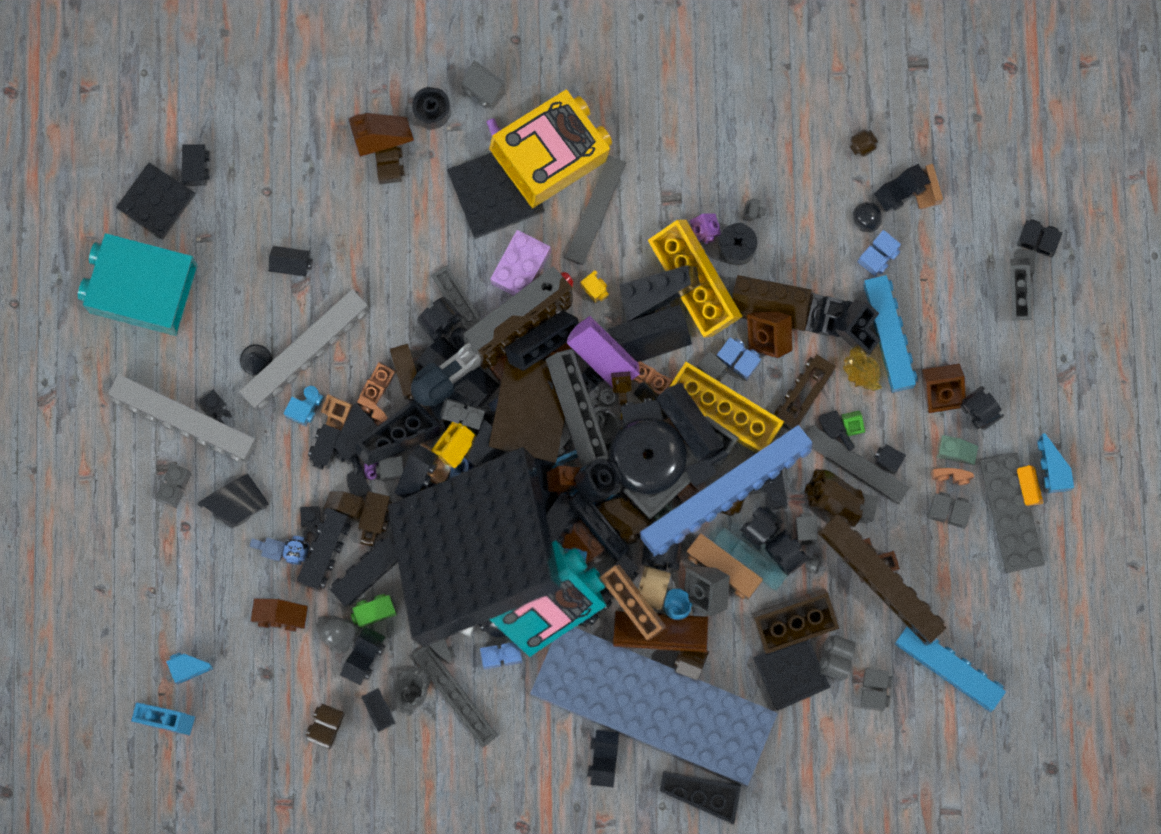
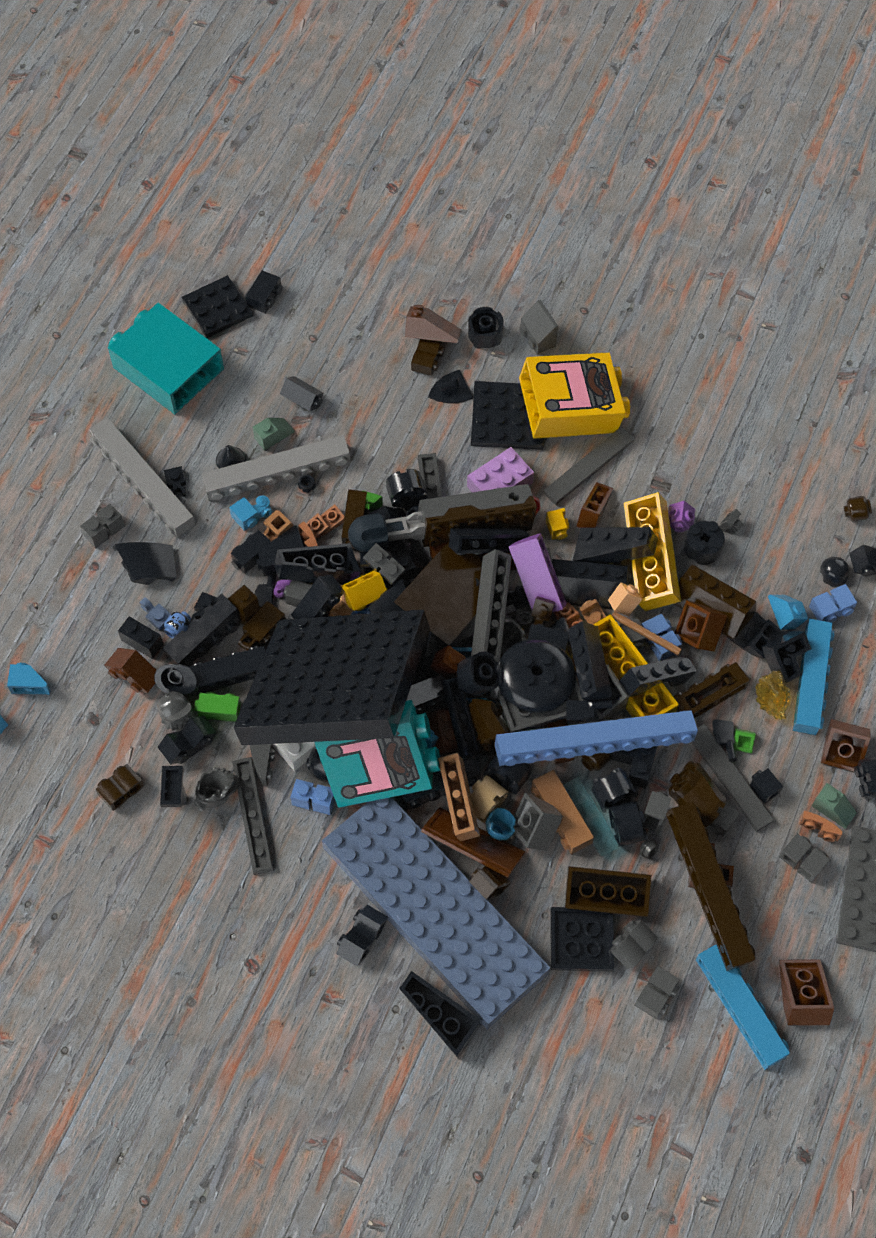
camera: 20 degrees right, 15 degrees down
(268, 578) = (140, 637): none -> black brick
(281, 313) = (271, 431): none -> sand green slope
(324, 604) = (175, 678): none -> black piece
(341, 347) = (304, 480): none -> black plate
(413, 342) = (374, 501): none -> bright green slope
(427, 186) = (450, 389): none -> black shield
(621, 252) = (594, 506): none -> reddish brown slope
(668, 363) = (592, 611): none -> medium nougat bracket
(691, 339) = (625, 599): none -> light nougat brick
(725, 364) = (646, 633): none -> medium nougat bar
(753, 402) = (643, 677): none -> black arch
(841, 279) = (788, 611): none -> dark azure slope
(997, 630) = (805, 992): none -> reddish brown slope

